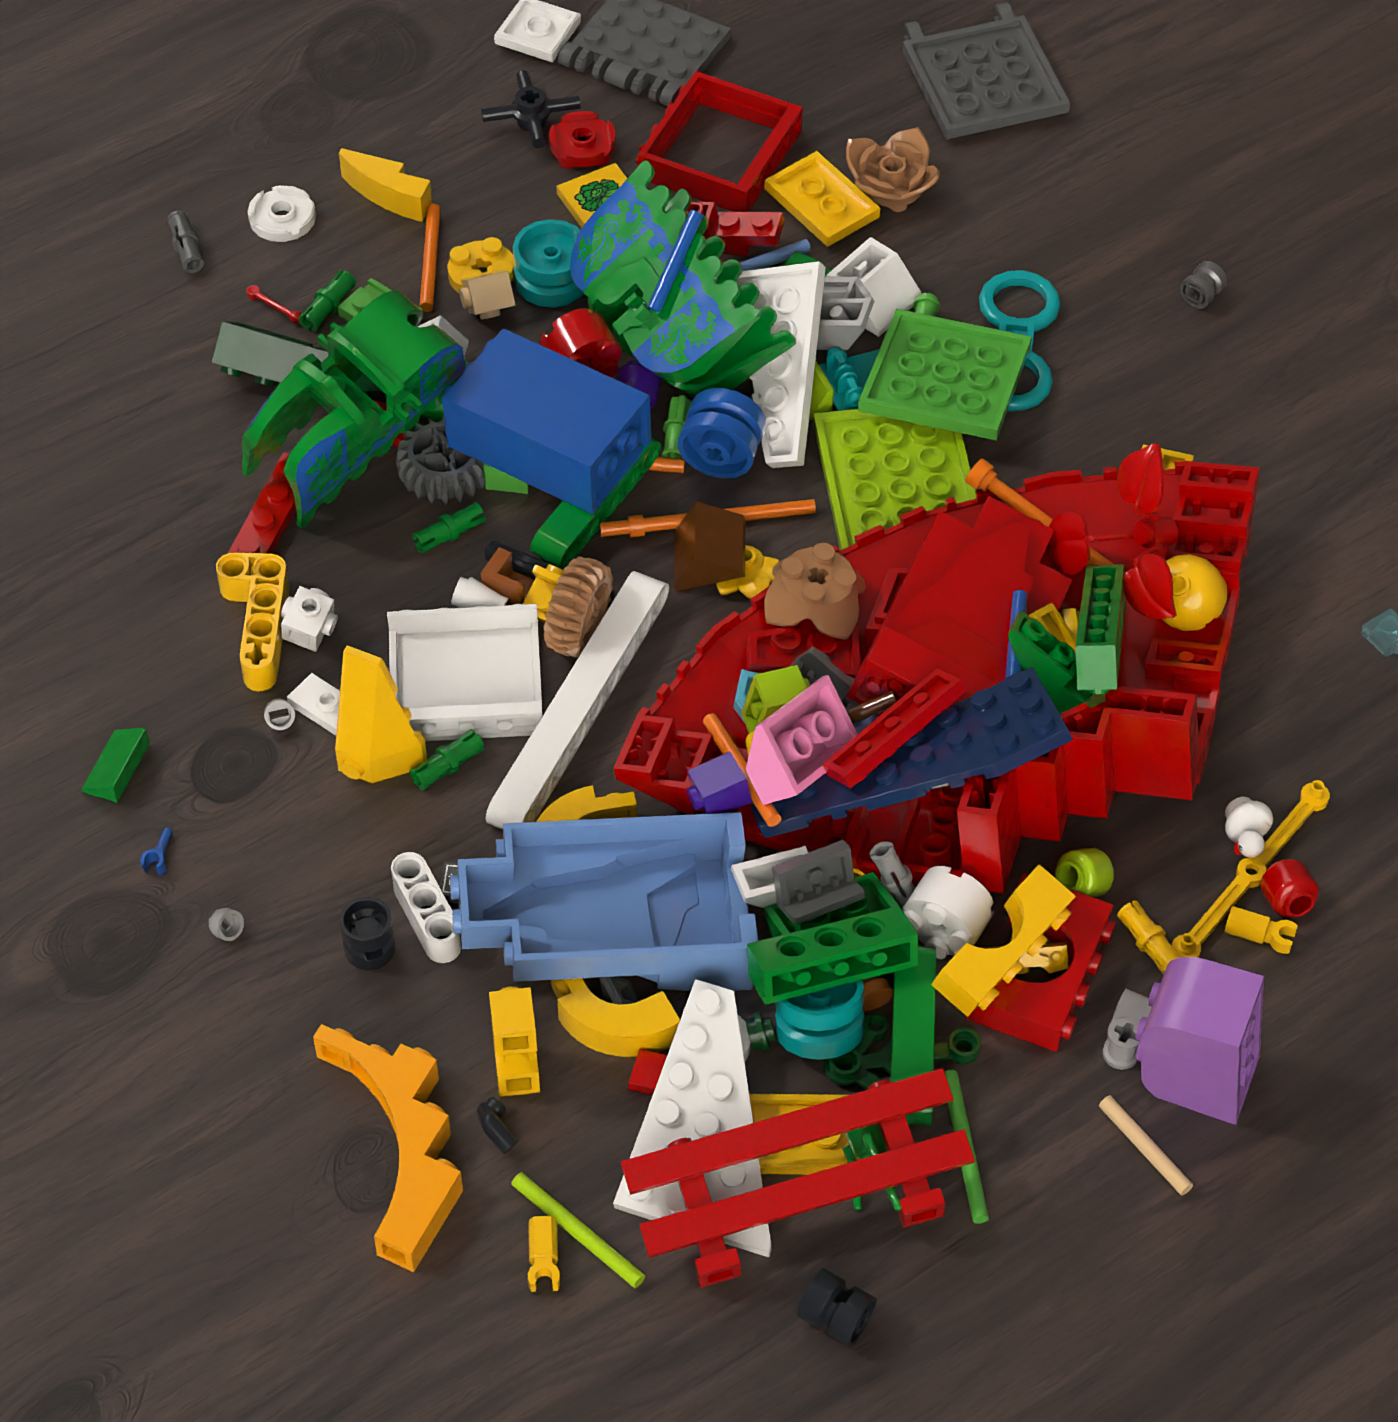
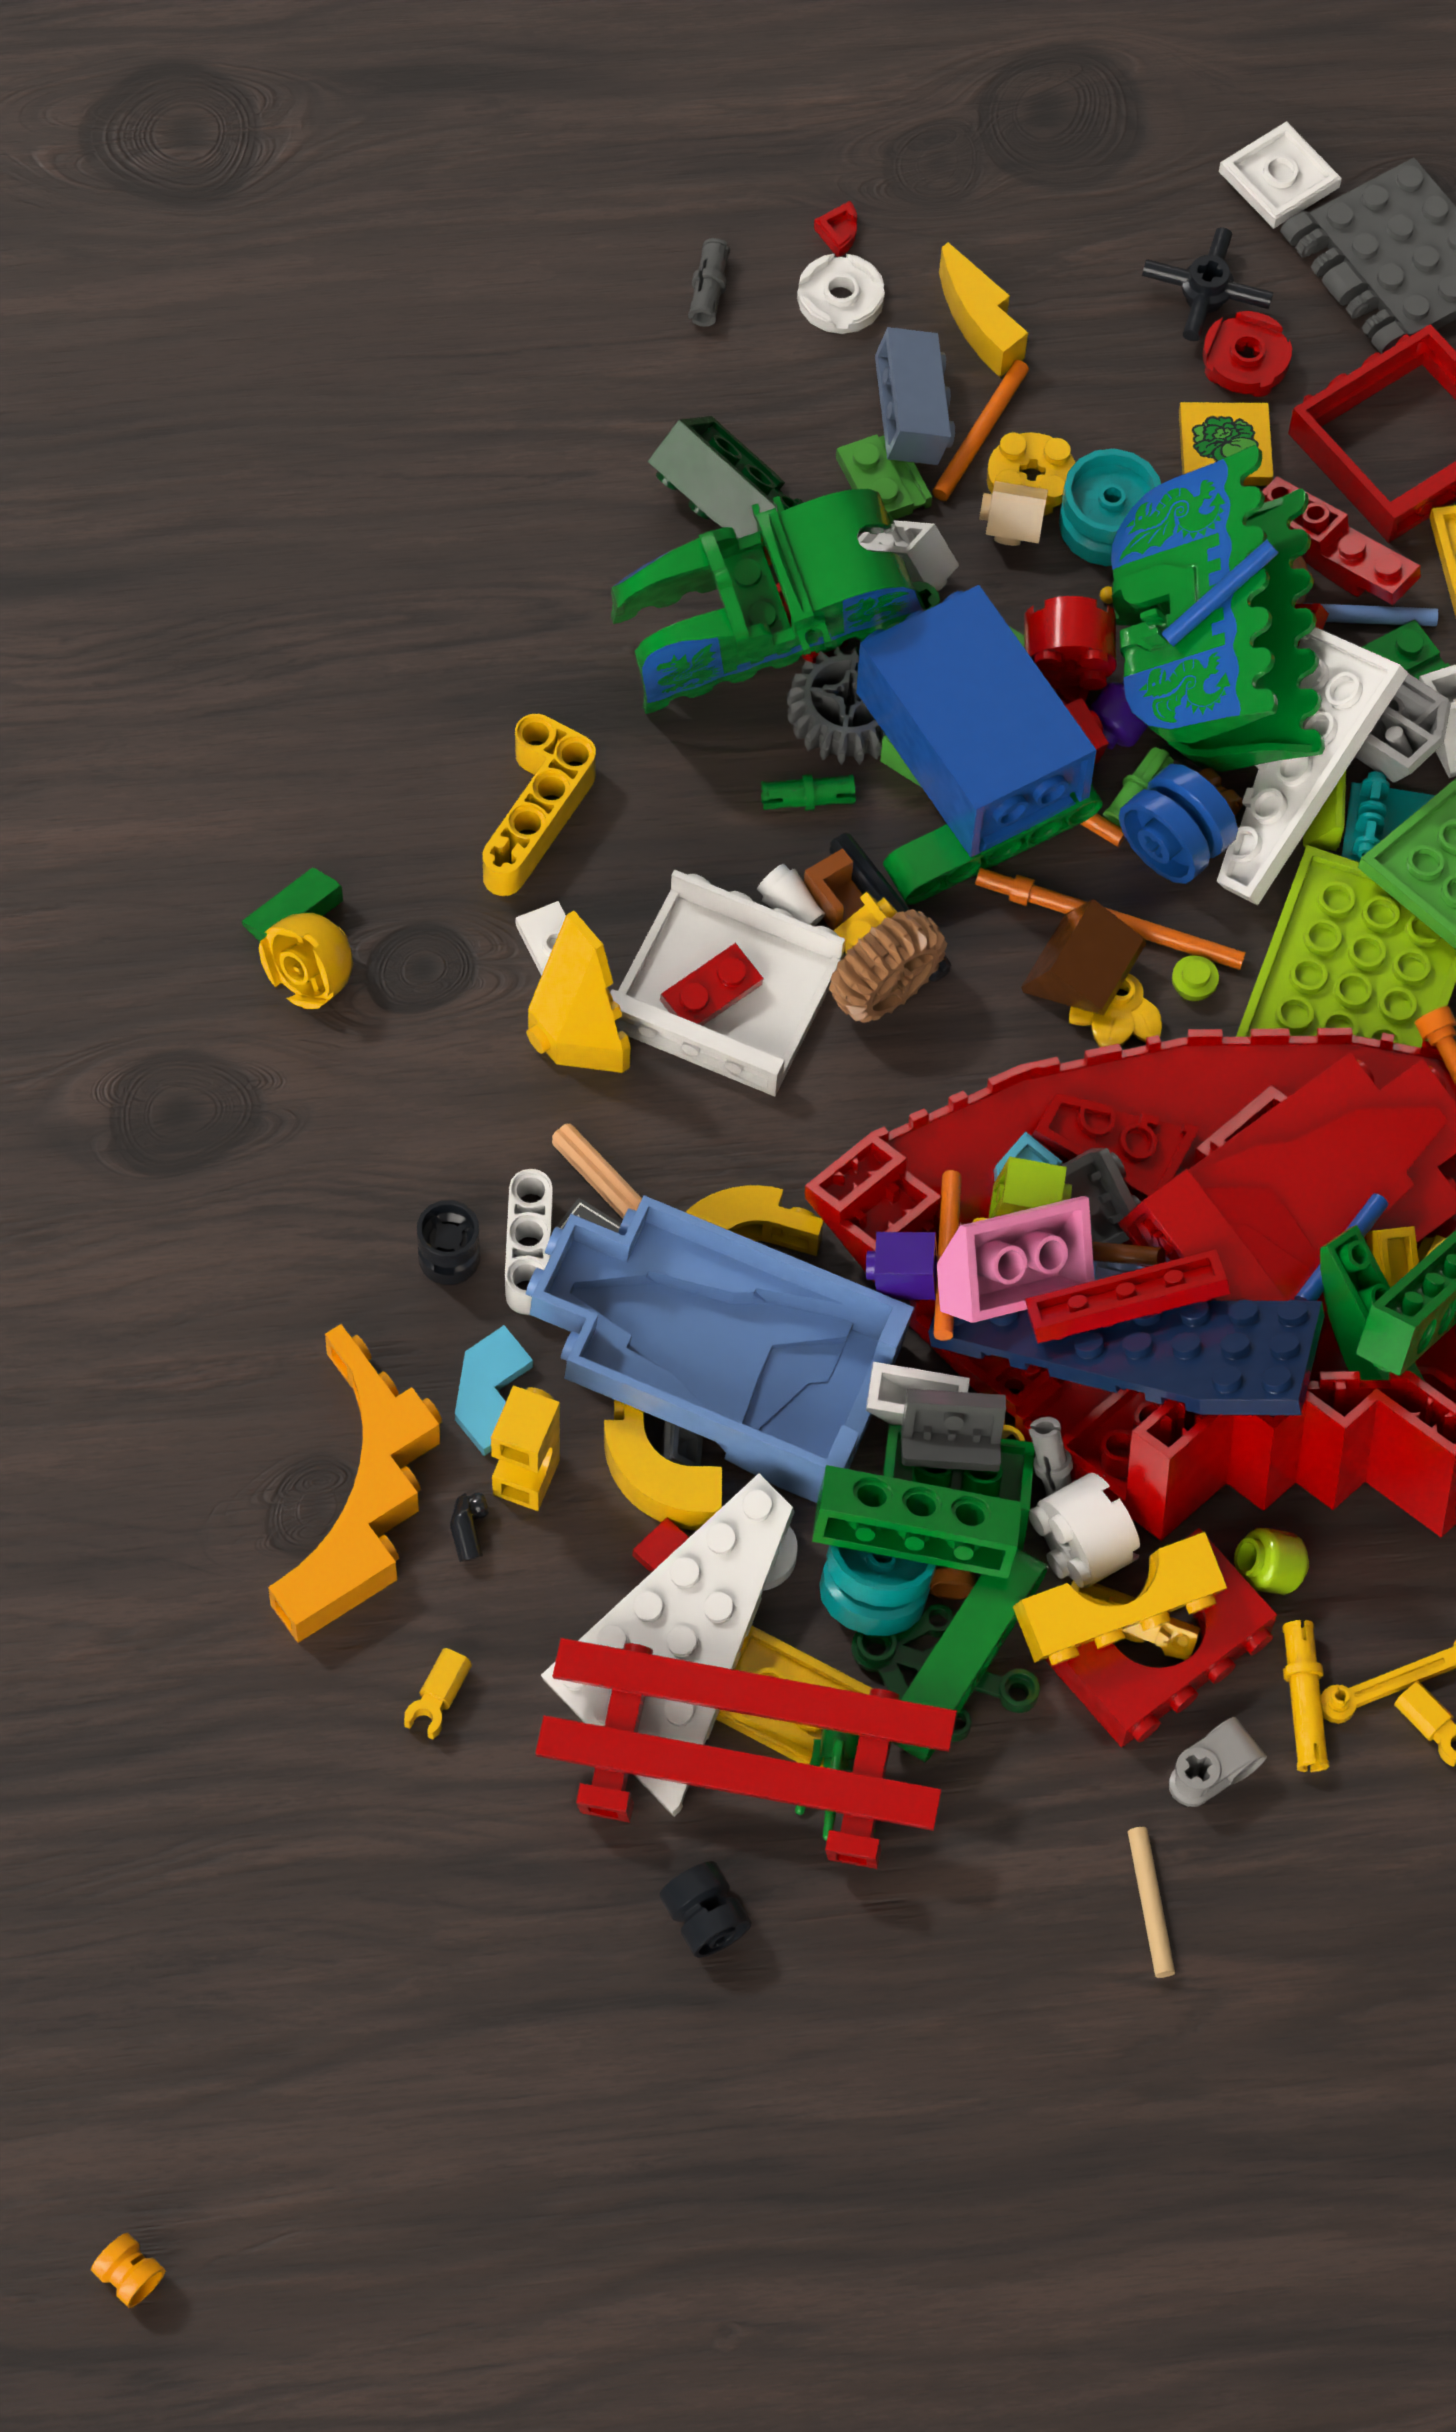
camera: 25 degrees right, 10 degrees up
(148, 789) = (307, 957): none -> yellow cylinder
(157, 853) = (281, 1037): blue hand -> none
(230, 917) = (314, 1166): light grey hinge -> none
(253, 293) = (753, 384): red hinge -> none
(255, 175) = (838, 228): none -> red tile
(268, 516) = (606, 689): red plate -> none
(281, 721) = (493, 942): light grey hinge -> none
(308, 618) = (587, 833): white brick -> none
(327, 300) = (828, 435): green pin -> none
(373, 250) = (913, 396): none -> sand blue brick
(446, 759) = (649, 1077): green pin -> none
(446, 838) = (595, 1169): none -> light nougat axle
(455, 1038) = (485, 1371): none -> medium azure tile
(459, 677) = (713, 987): none -> red plate
(578, 702) = (830, 1078): white beam -> none
(578, 1230) = (490, 1685): lime bar -> none
(761, 1031) = (806, 1564): dark green plate -> none
(789, 530) = (1195, 978): none -> lime plate
(815, 587) = (1164, 1106): medium nougat brick -> none
(970, 1172) = (953, 1803): bright green bar -> none
(1202, 1036) = (1267, 1821): medium lavender brick -> none

